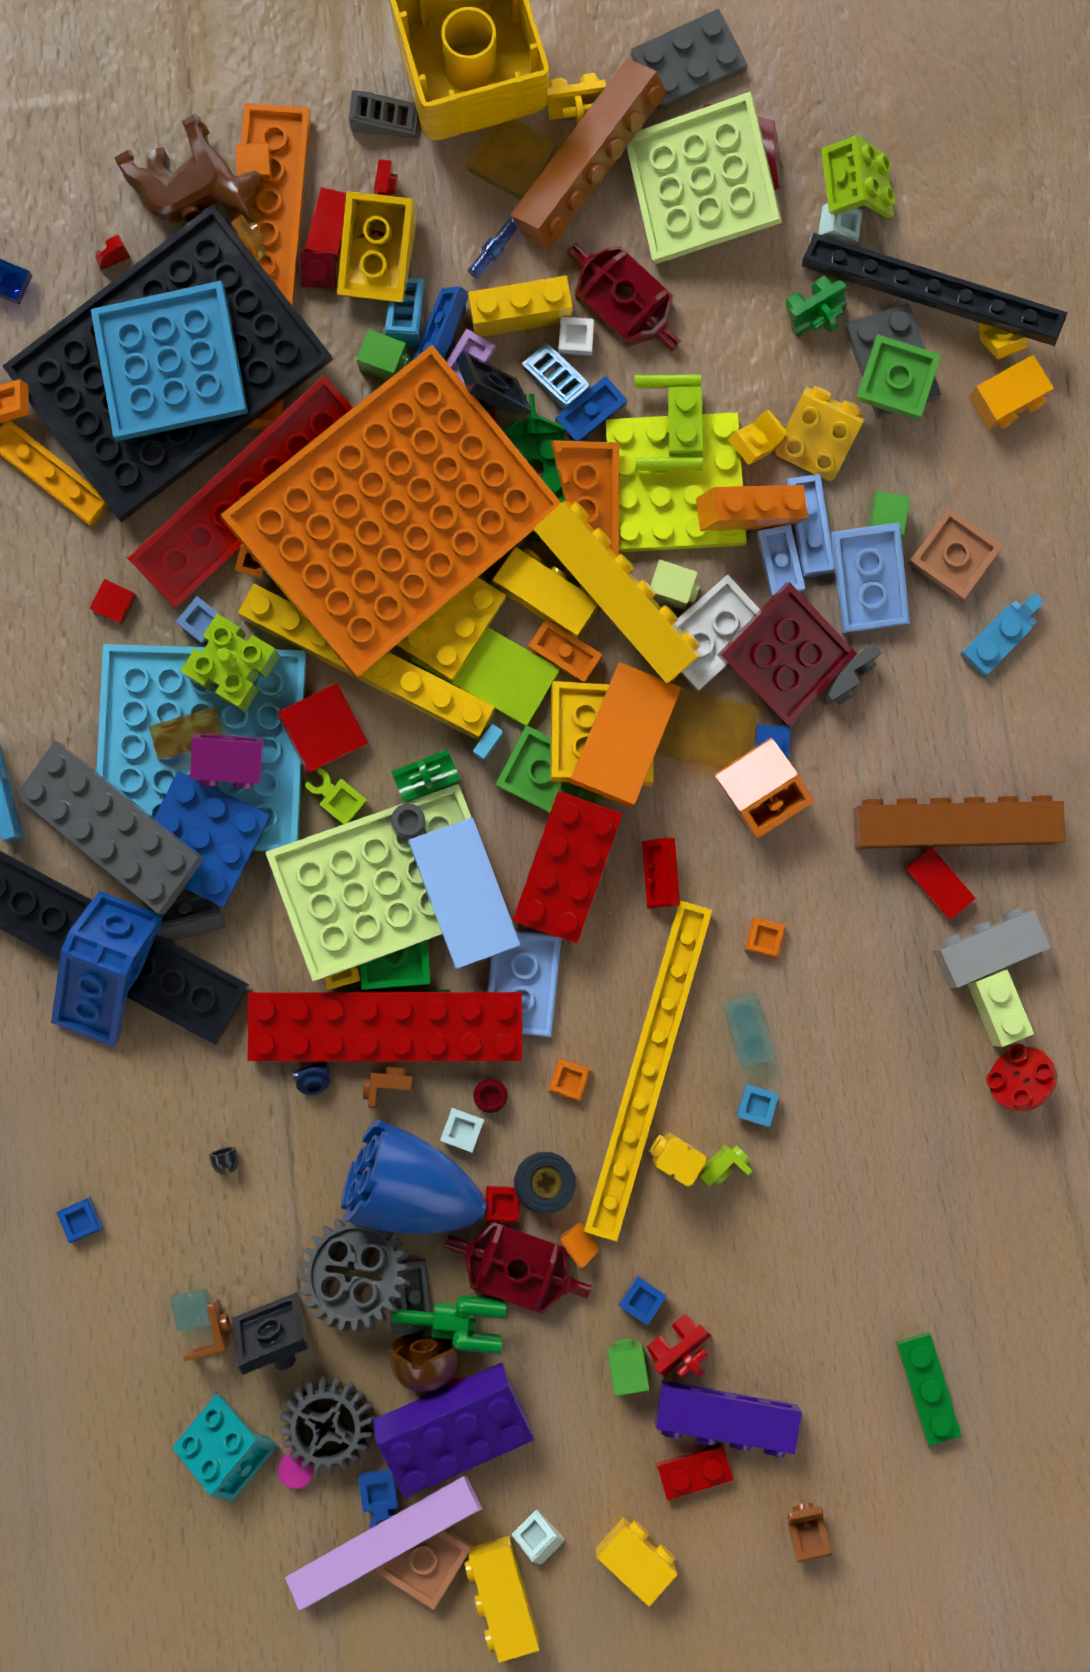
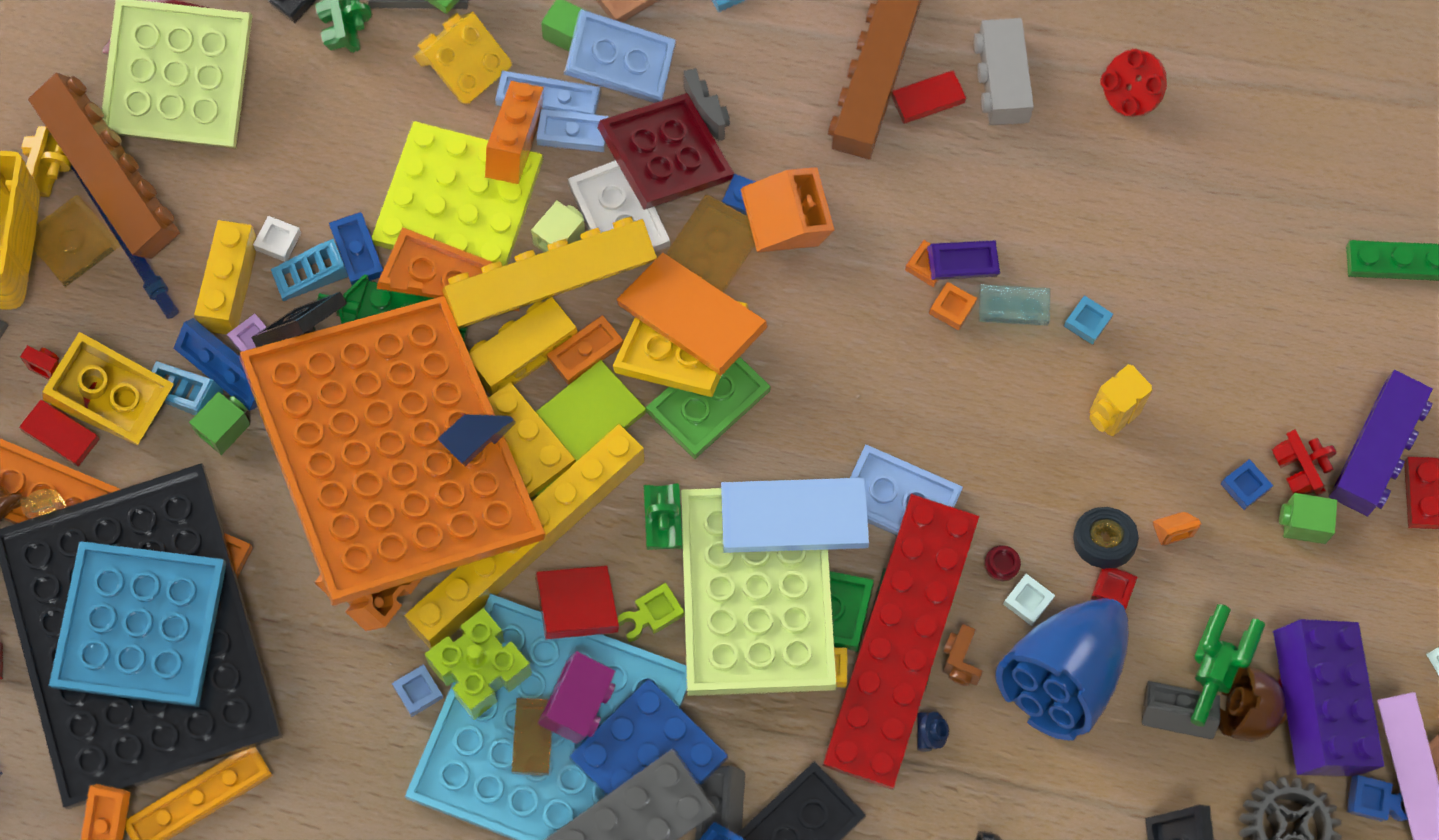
camera: 70 degrees left, 15 degrees down
(113, 601) = (361, 776): red tile -> none
(195, 537) = (318, 636): red plate -> none
(317, 269) = (102, 457): dark red plate -> none
(347, 1306) = (1175, 761): dark grey gear -> none
(407, 821) = (703, 545): dark grey tile -> none
(426, 580) = (473, 433): none -> dark blue slope
(488, 743) = (653, 451): medium azure tile -> none
(497, 1246) = (1165, 614): dark red plate -> none
(567, 866) = (800, 409): red brick -> none
(569, 1079) = (1009, 485): orange tile -> none
(636, 318) = (283, 181): dark red plate -> none
(647, 1071) = (1025, 408): yellow plate -> none
(660, 873) = (835, 332): red plate -> none
(684, 422) = (404, 167): lime plate -> none
(692, 57) = (46, 44): dark grey plate -> none
(718, 1168) = (1134, 355): lime bracket -> none
(727, 973) = (953, 306): none -> orange plate
(758, 438) = (446, 107): yellow bracket -> none
(776, 969) = (963, 260): none -> dark purple tile
(1000, 1008) = (1064, 80): yellowish green brick -> none

